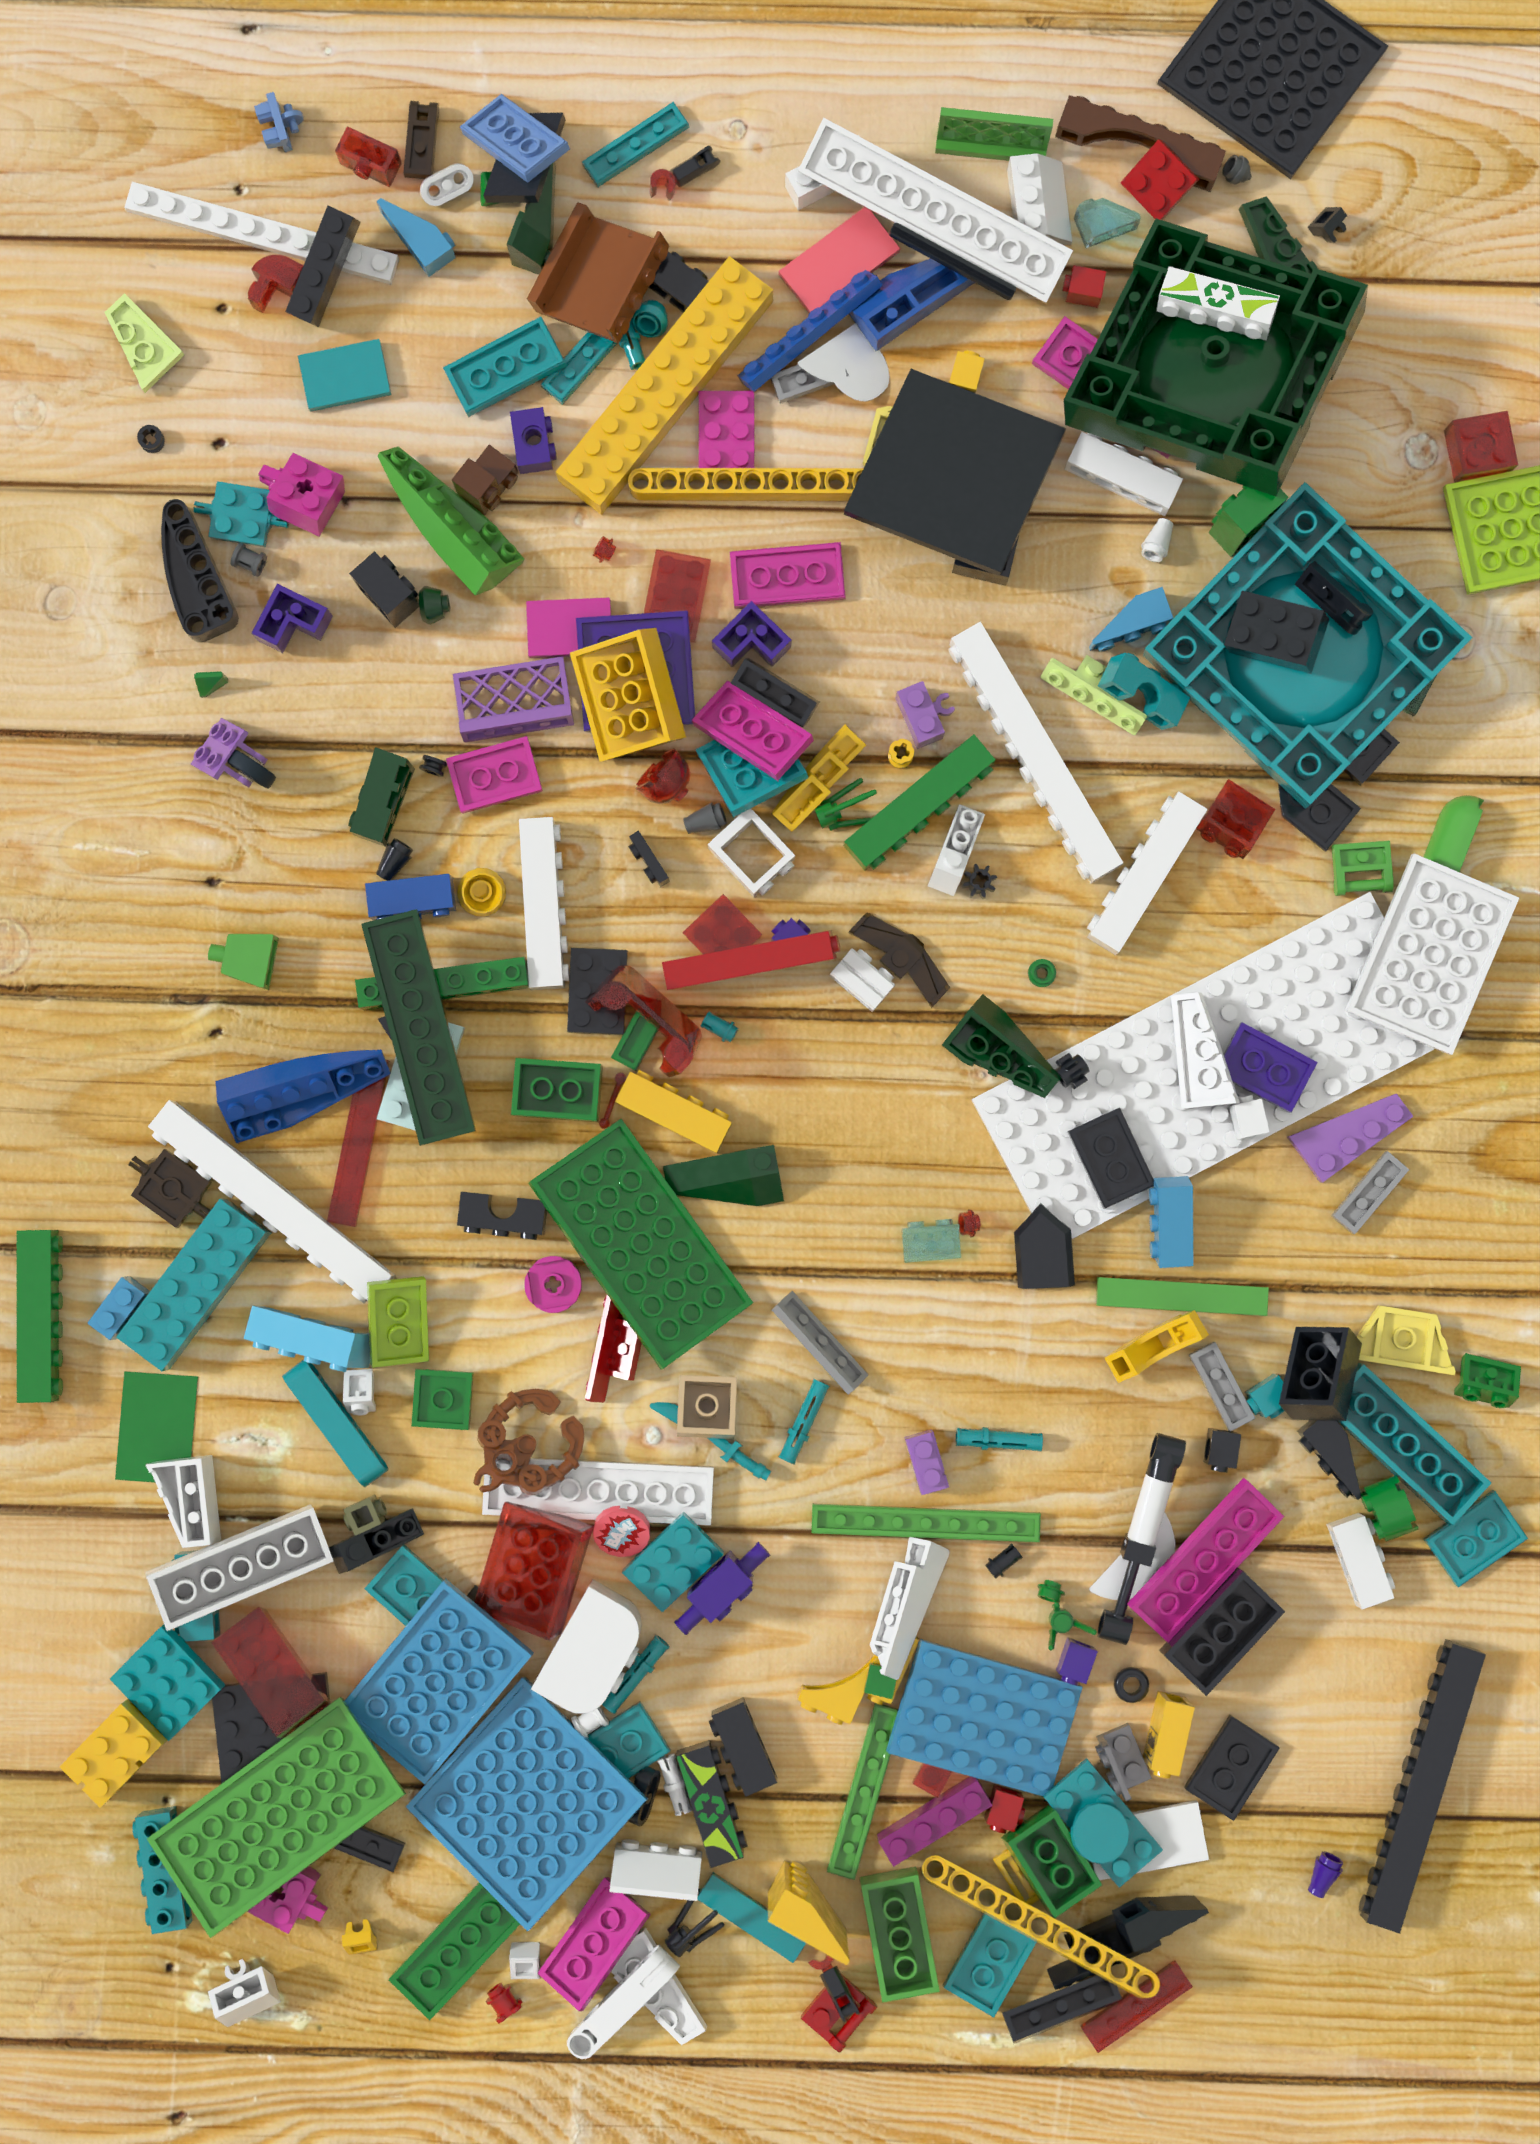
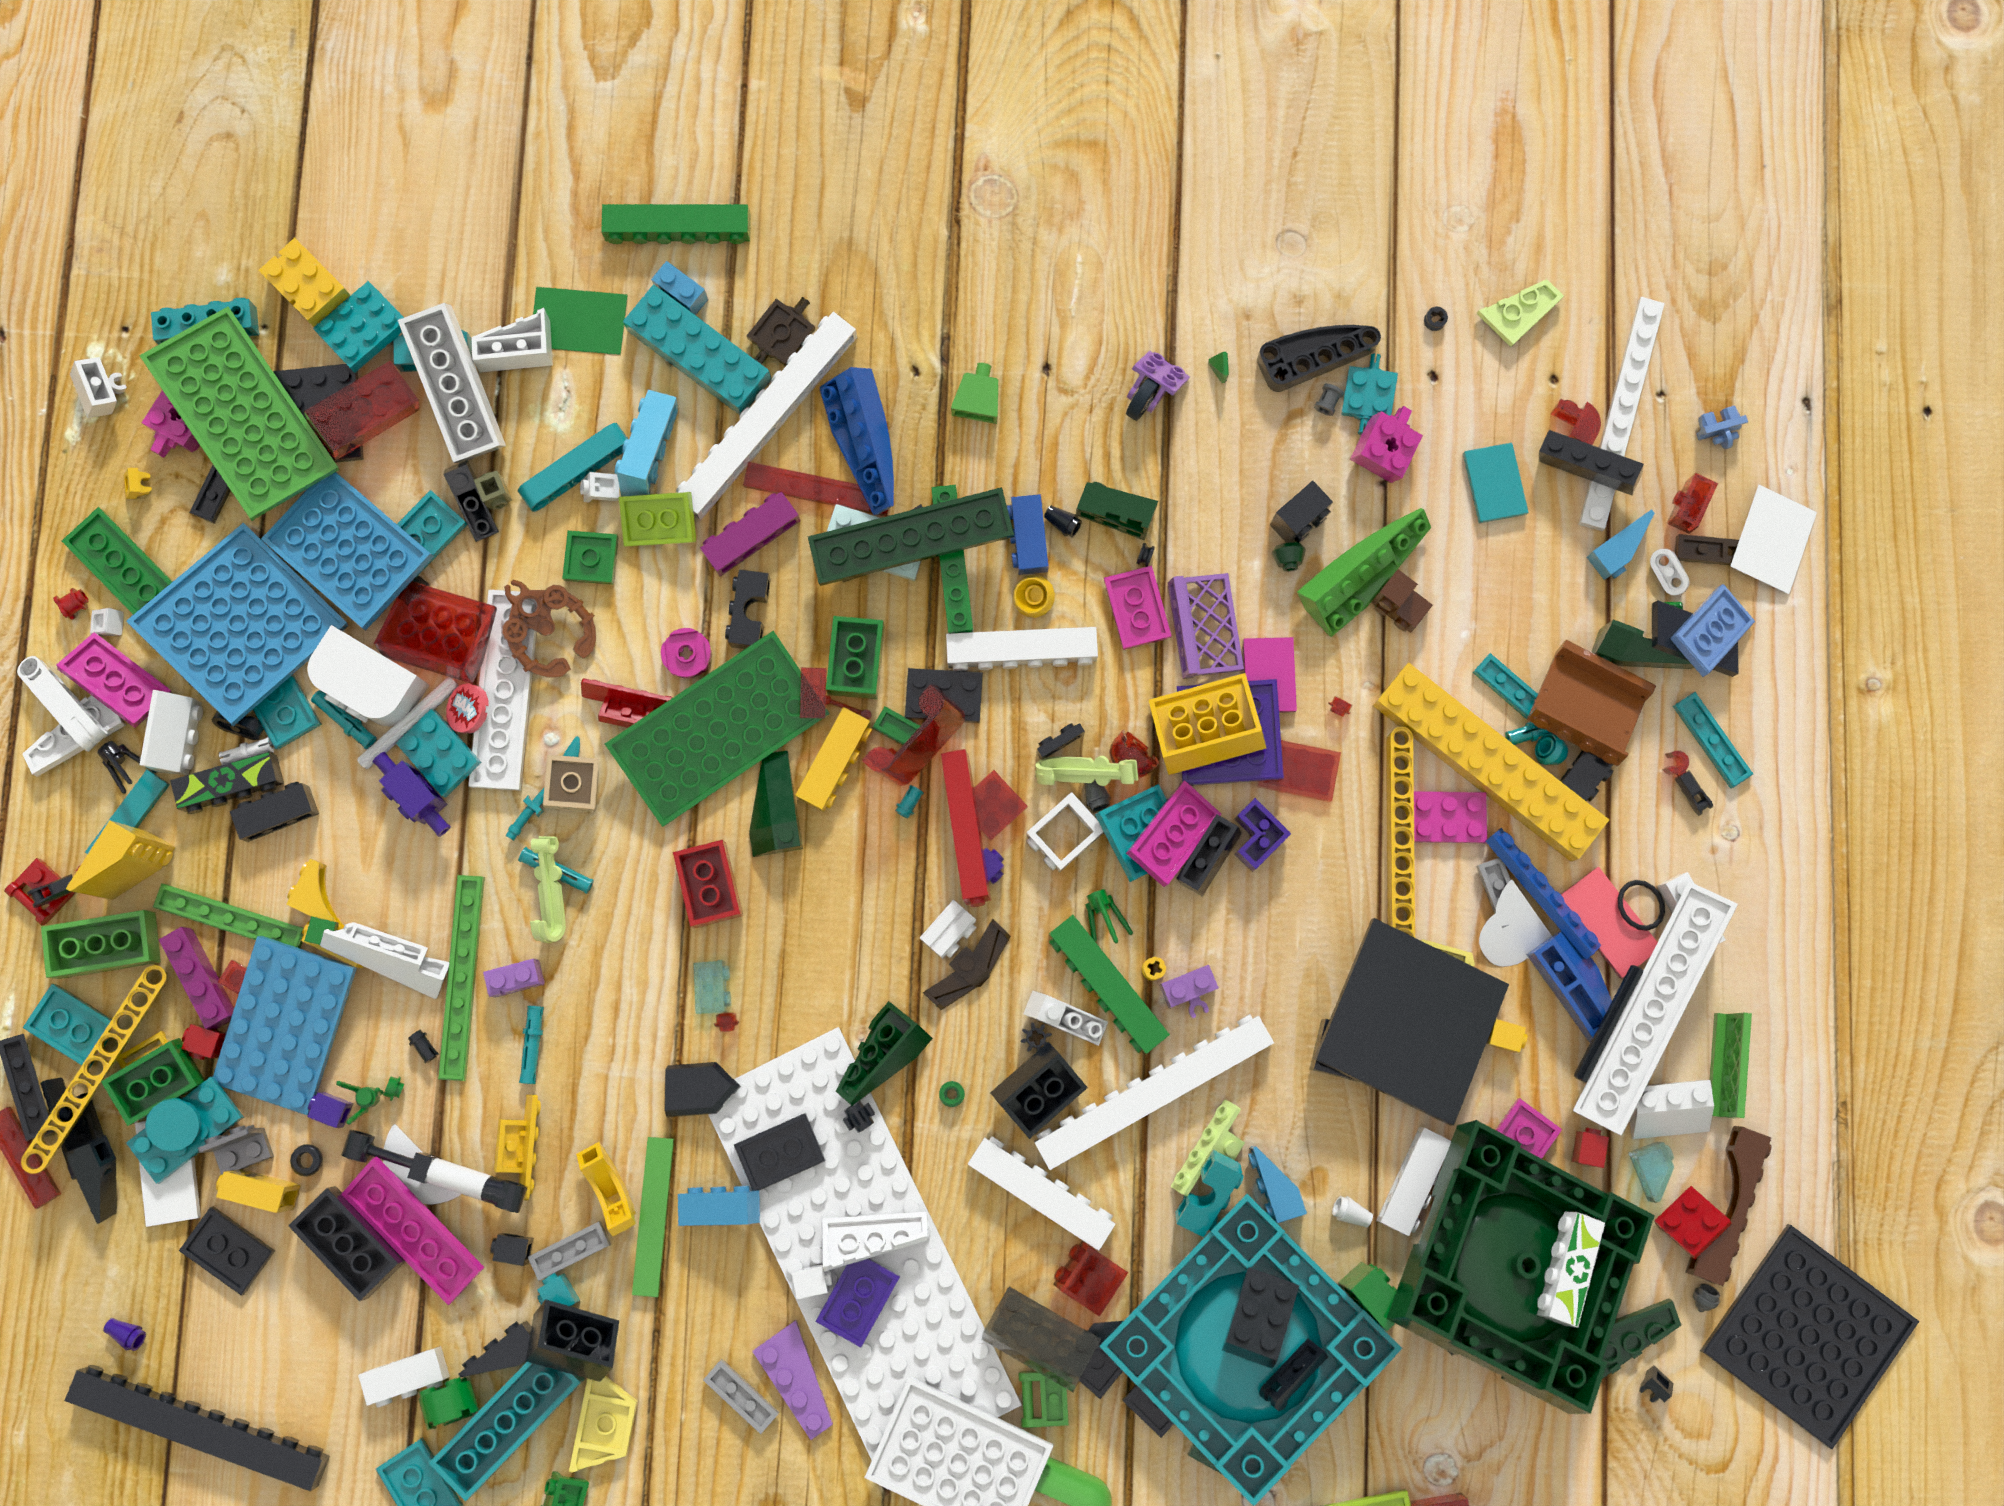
camera: 90 degrees right, 5 degrees down
(288, 612) = (1279, 428): brick -> none
(407, 70) = (1773, 539): none -> white sticker
(412, 1215) = (750, 533): none -> magenta brick
(504, 366) = (1505, 621): teal tile -> none
(528, 424) = (1449, 635): dark purple brick -> none
(590, 1721) = (303, 680): white bush -> none
(598, 1136) = (812, 692): none -> clear red plate
(638, 1600) = (392, 736): none -> white axle
(683, 830) = (1085, 770): none -> yellowish green piece
(787, 575) = (1318, 870): dark pink tile -> none
(818, 1247) = (708, 884): none -> red brick
(820, 1342) = (624, 885): light grey plate -> none
(822, 774) = (1133, 894): yellow slope -> none
(826, 246) = (1659, 898): none -> black piece
(828, 1426) = (550, 892): none -> yellowish green piece
(1037, 875) = (1038, 1090): none -> black brick
(1108, 1449) = (516, 1144): none -> yellow bracket
(1302, 869) = (1040, 1339): none -> clear smoke brick

